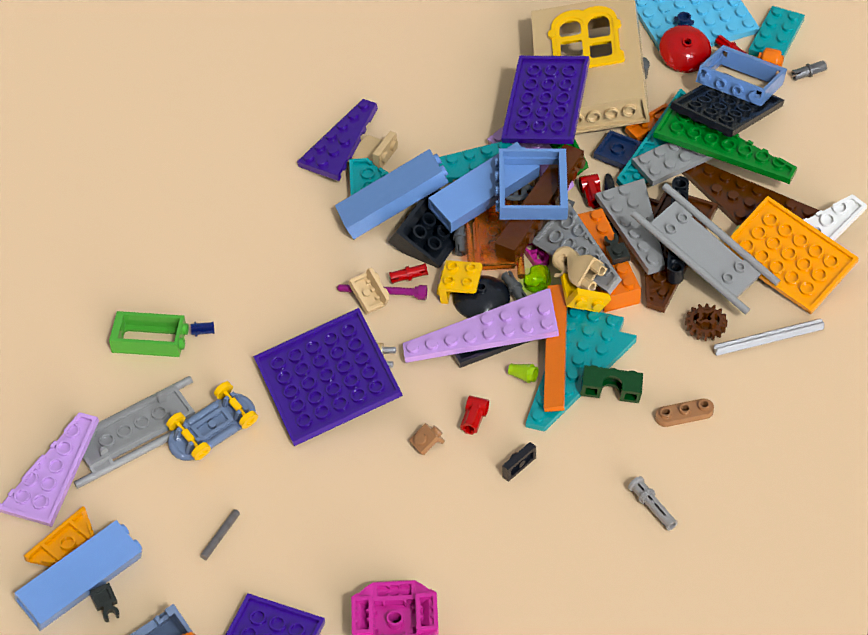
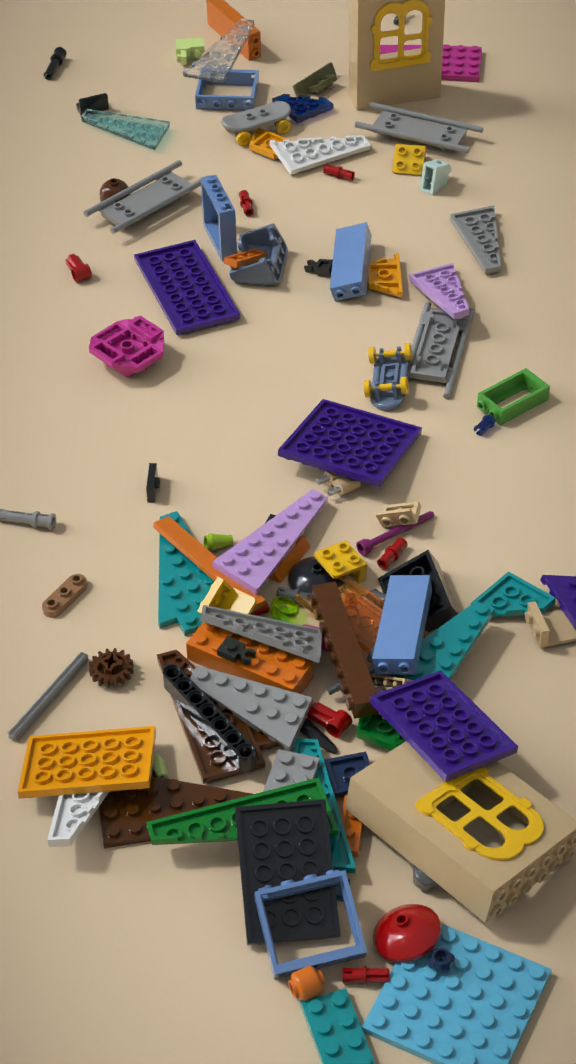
camera: 135 degrees right, 5 degrees down
(220, 534) = (302, 336): flat silver bar -> none
(392, 193) = (471, 576): medium blue brick -> none
(426, 438) = (234, 459): medium nougat bracket -> none
(474, 412) = (221, 493): red piece -> none
(537, 157) = (356, 666): medium blue window -> none
(580, 269) = (239, 603): tan hips -> none
(626, 382) = (126, 578): dark green arch -> none
(703, 250) = (160, 697): light grey piece -> none
(809, 70) = (258, 1006): dark grey axle -> none

